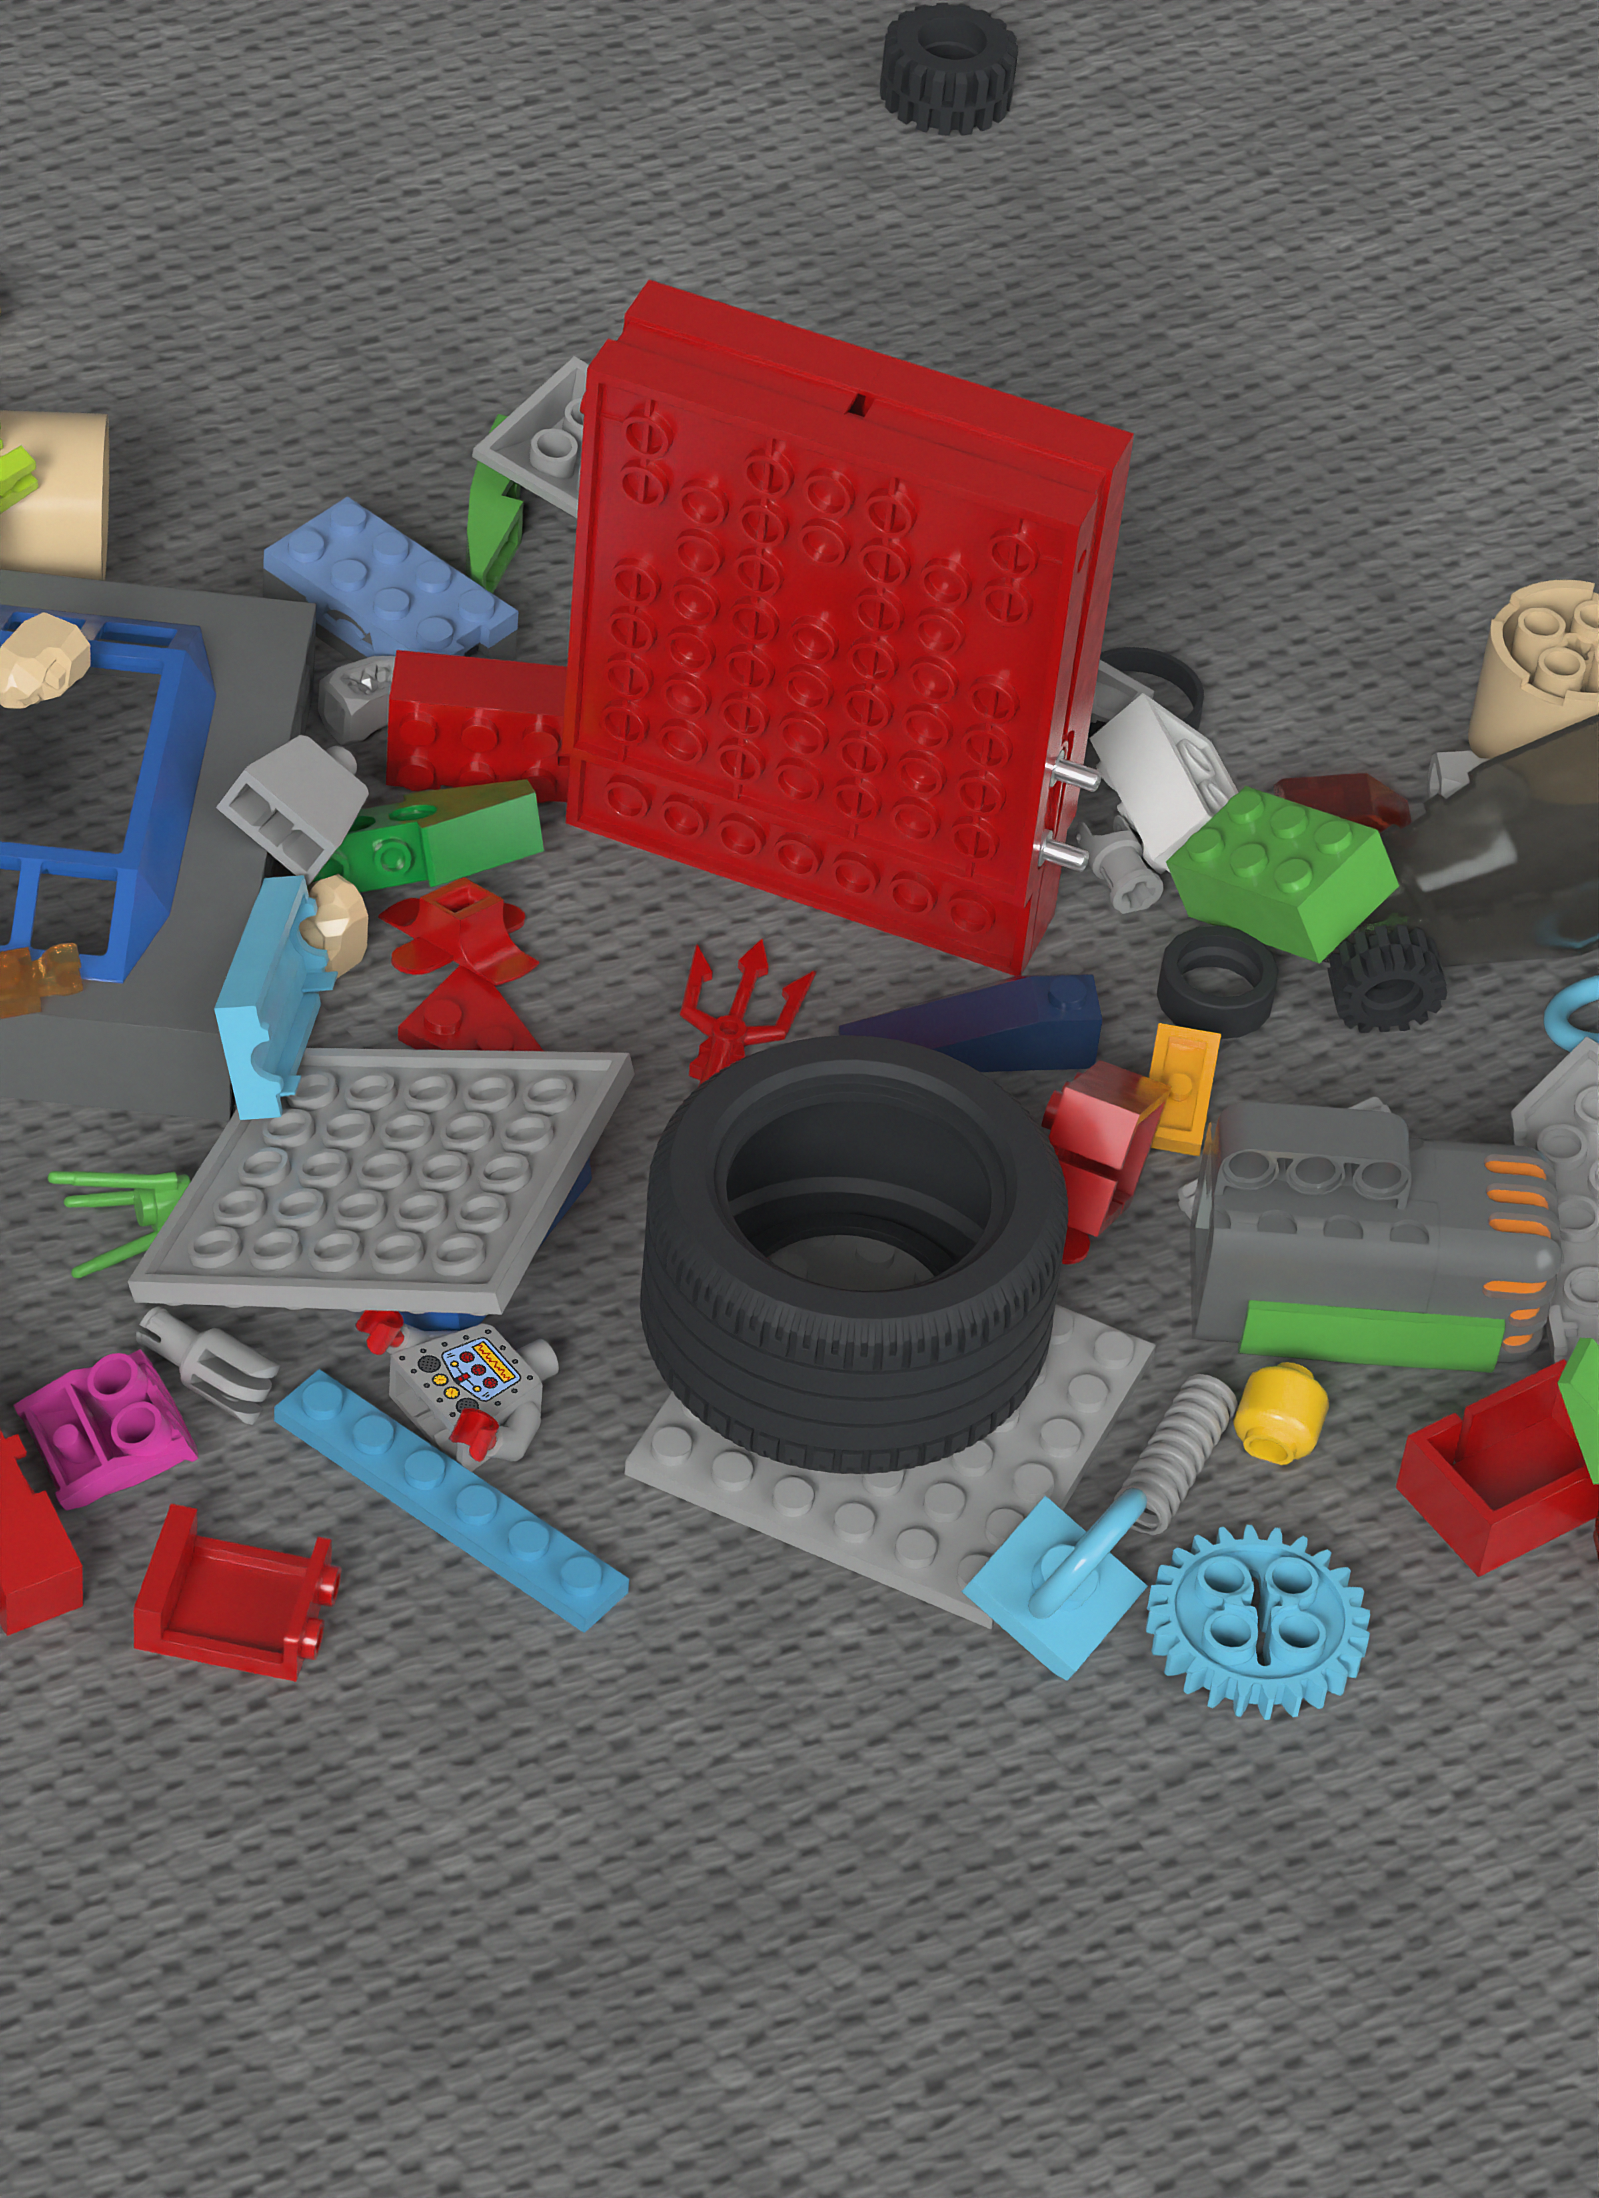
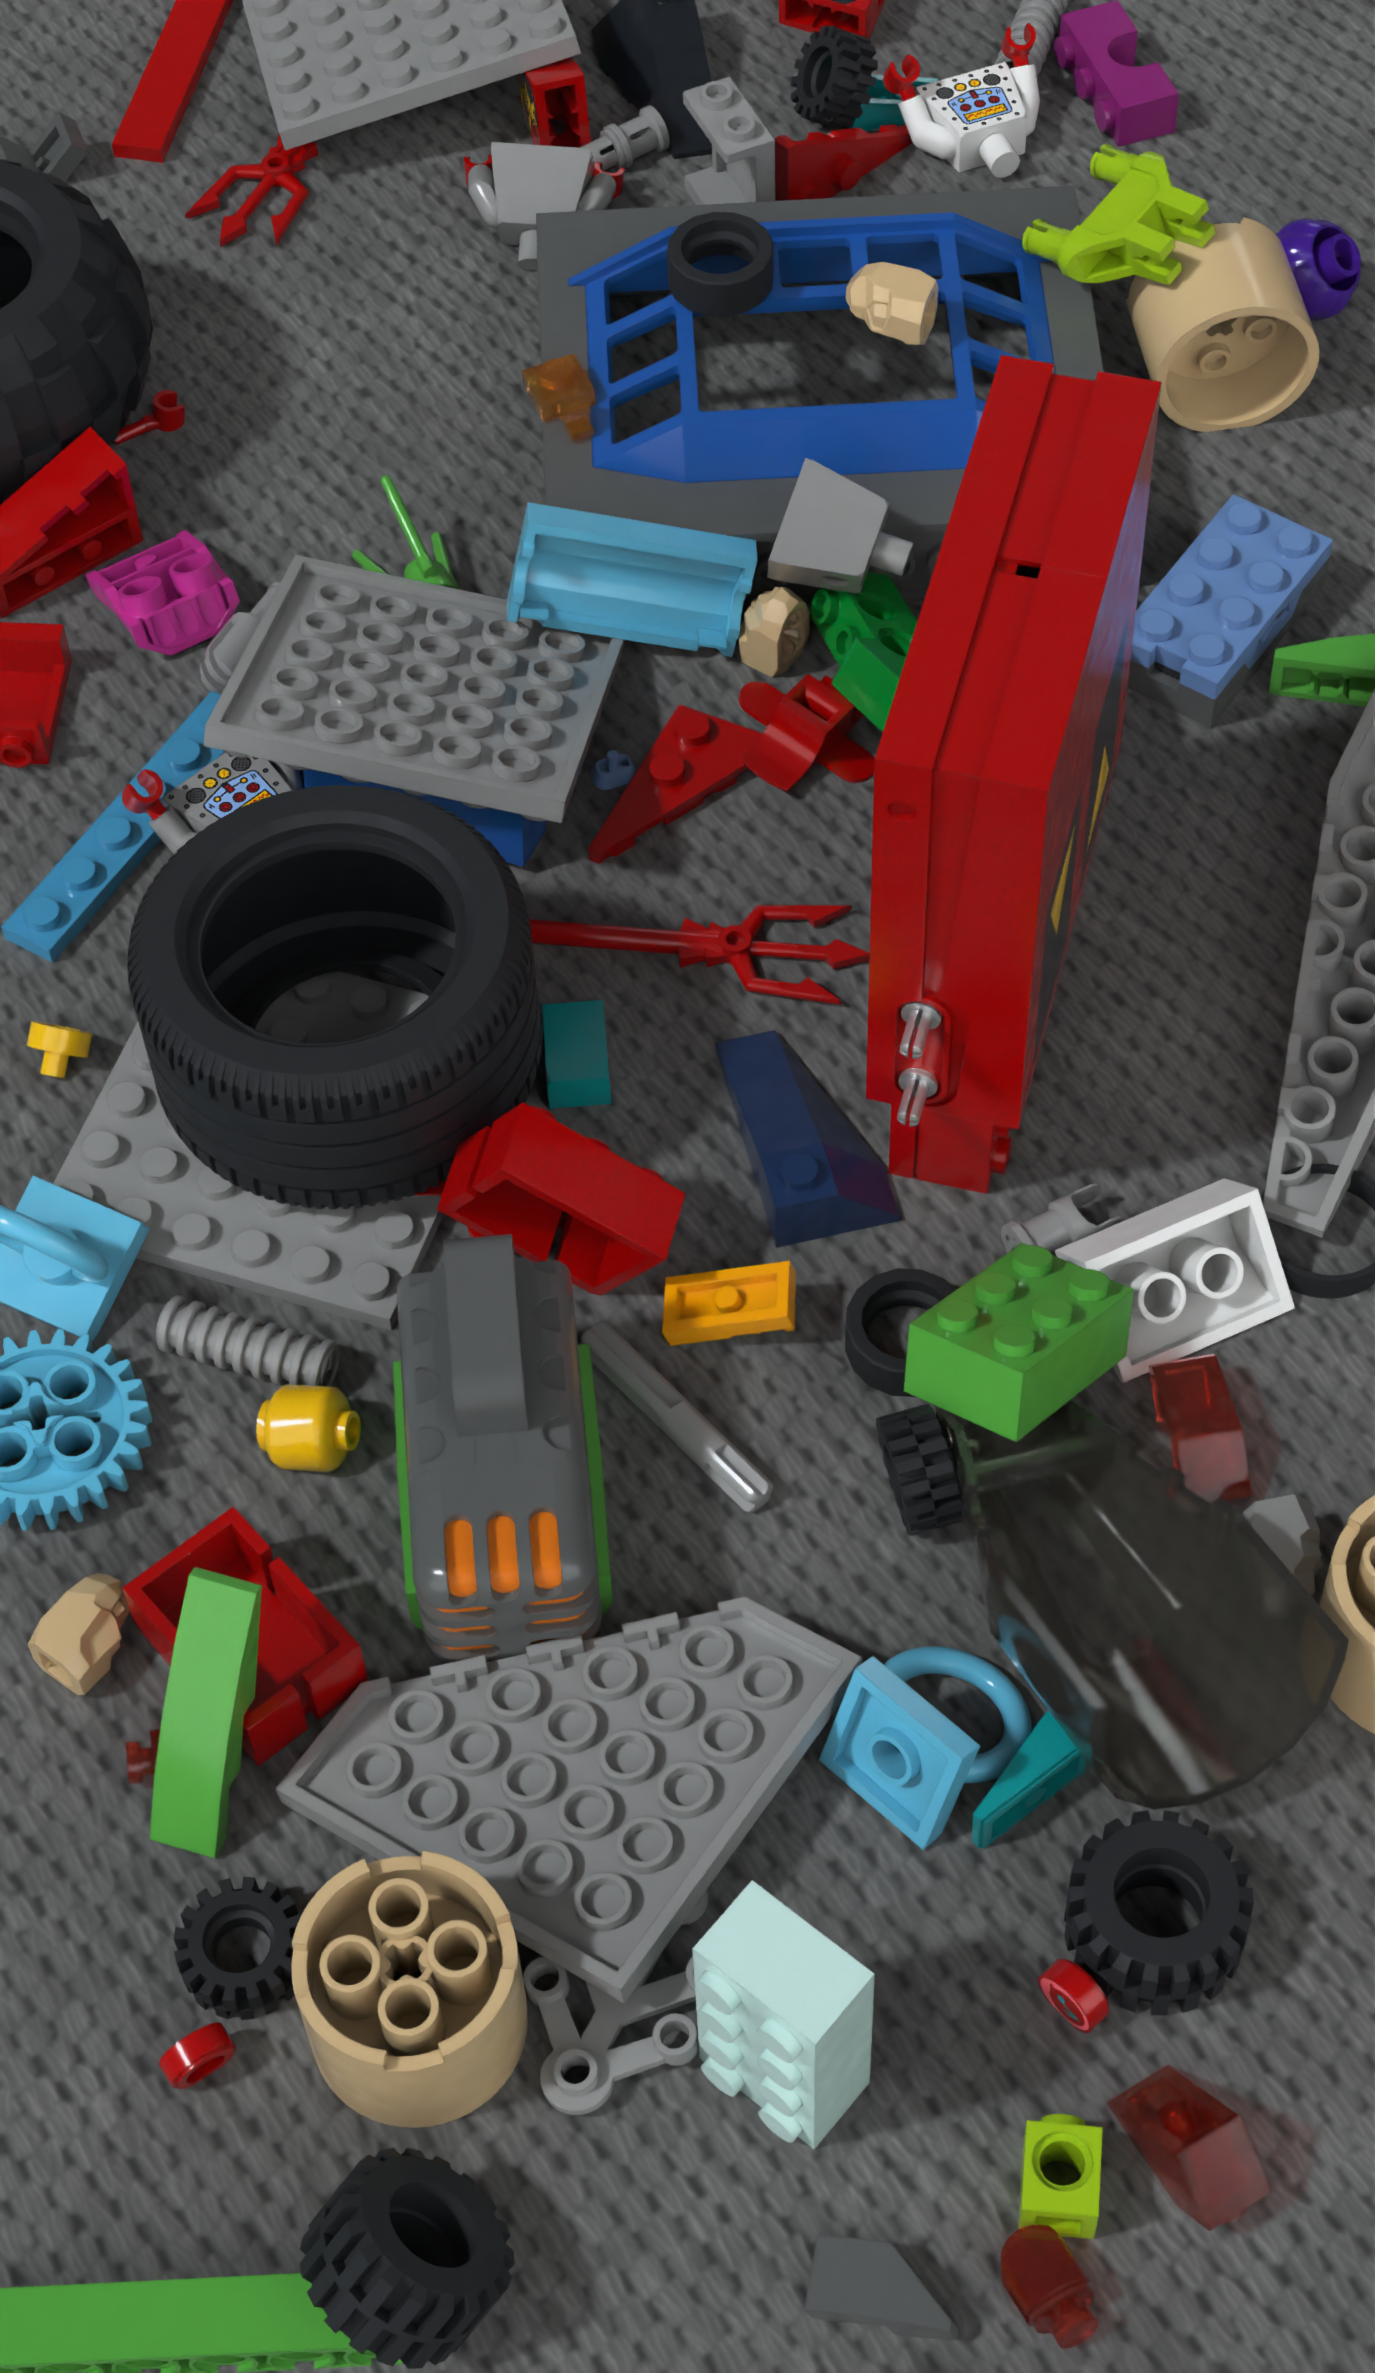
camera: 90 degrees right, 10 degrees up
(765, 1576) = (58, 1044): none -> yellow tile
(1495, 1605) = (81, 1632): none -> tan rock

